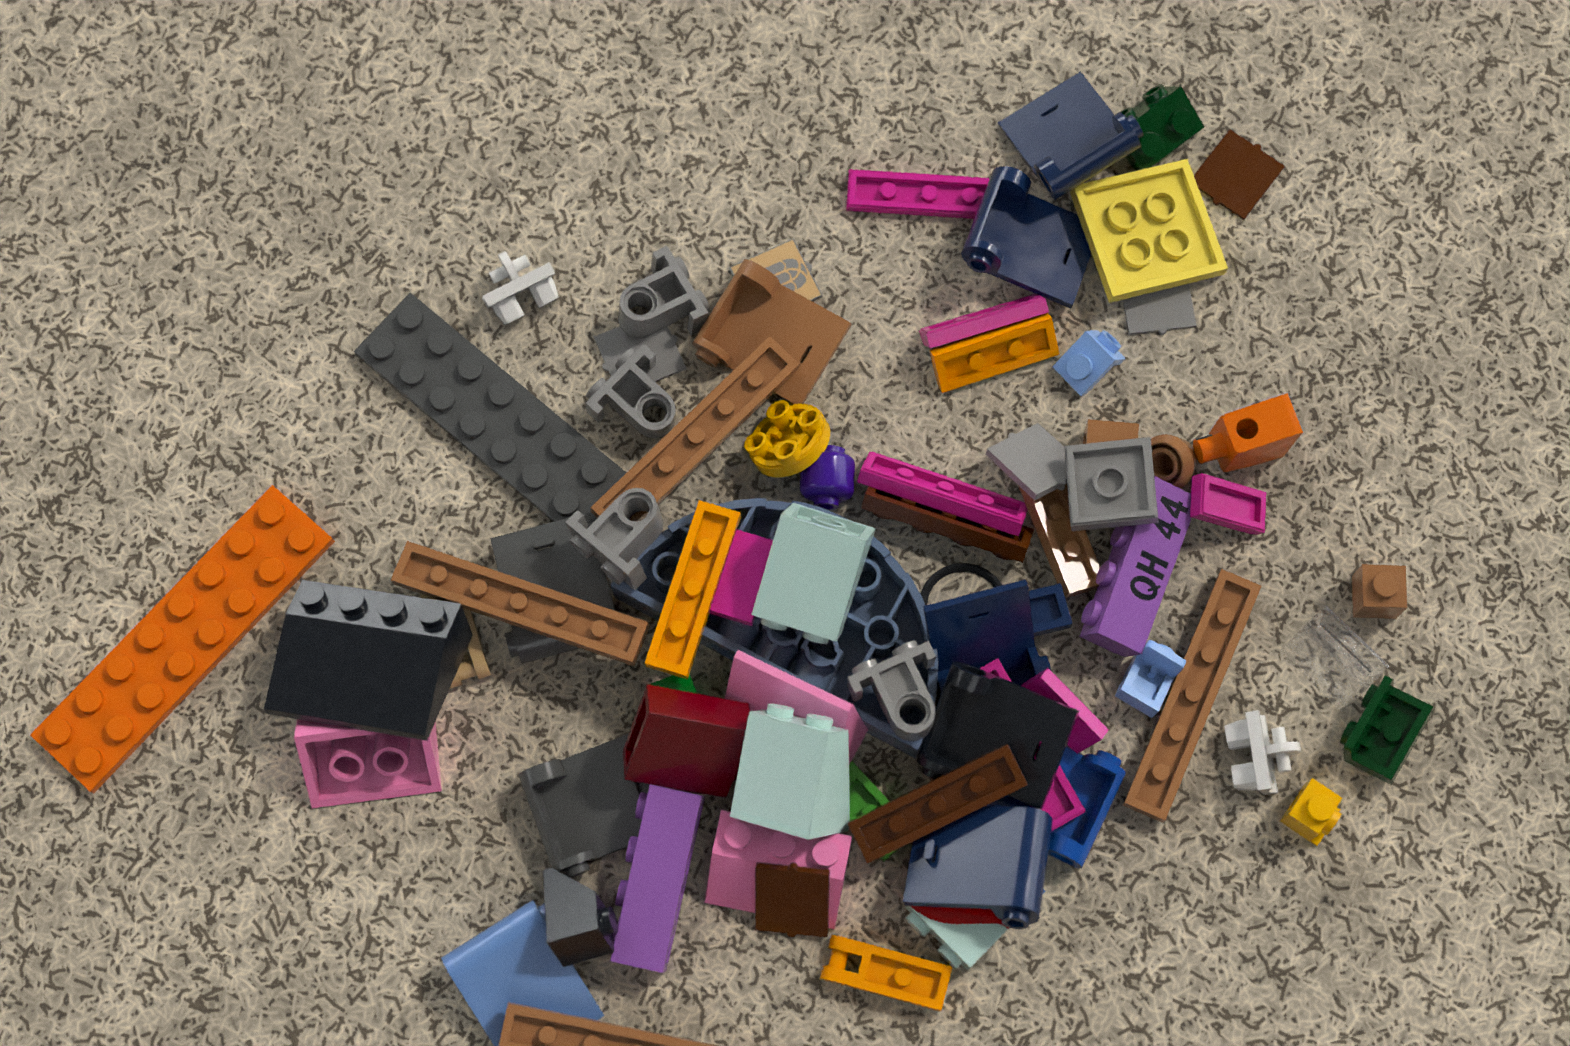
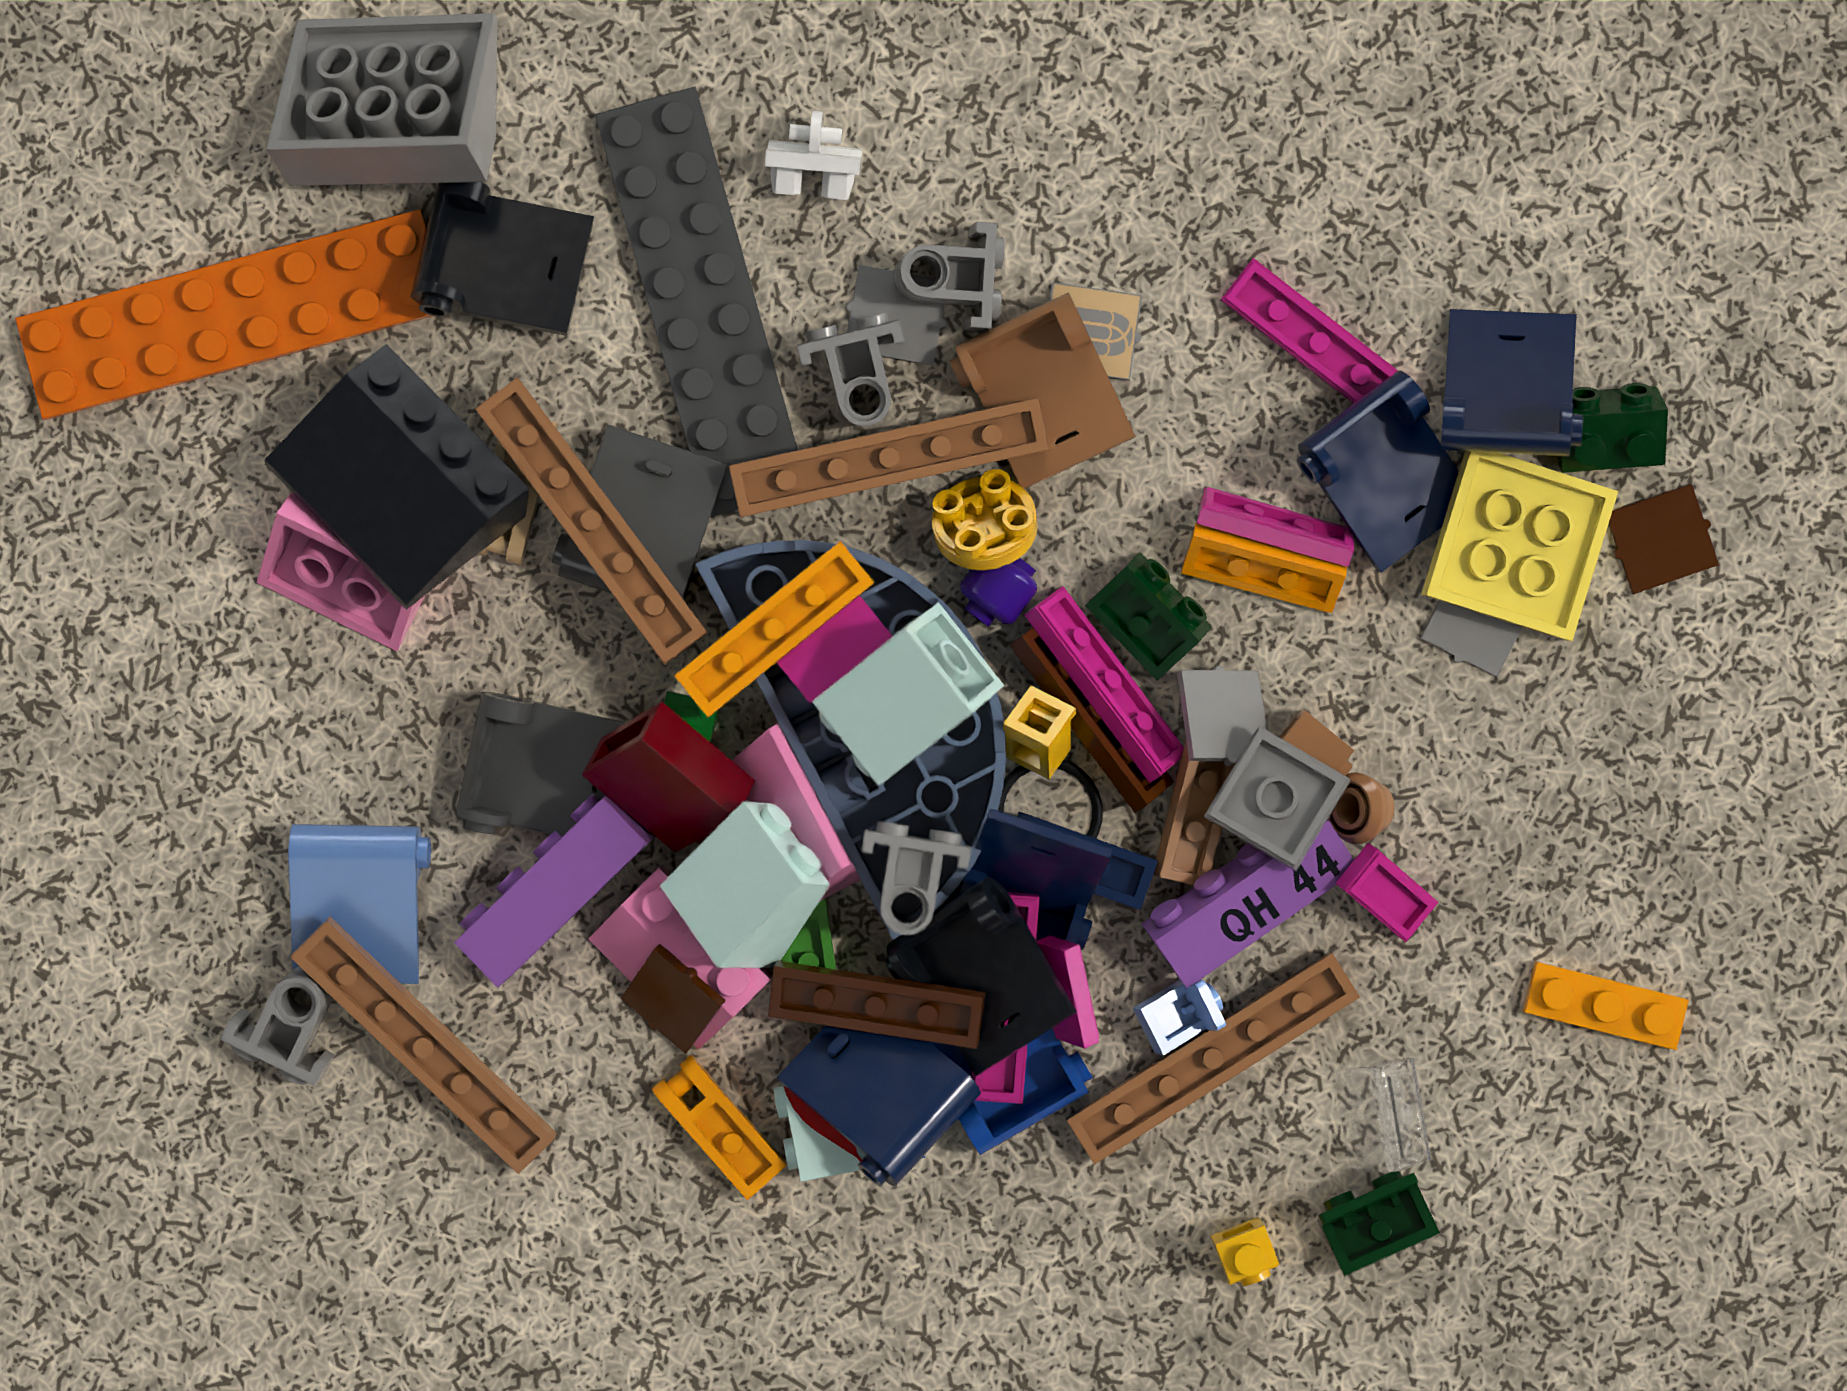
camera: 30 degrees right, 15 degrees up
(206, 426) = (388, 101): none -> light grey slope
(346, 481) = (496, 257): none -> black door
(576, 920) = (445, 881): black slope -> none
(617, 539) = (730, 523): light grey pin -> none
(921, 549) = (1039, 732): none -> yellow brick
(940, 432) = (1149, 615): none -> dark green bracket
(1089, 360) = (1357, 642): light blue bracket -> none
(1251, 435) = (1470, 844): orange torso -> none
(1260, 773) = (1224, 1180): white hips -> none
(1379, 591) = (1473, 1082): medium nougat brick -> none
(1425, 487) = (1605, 1005): none -> light orange plate

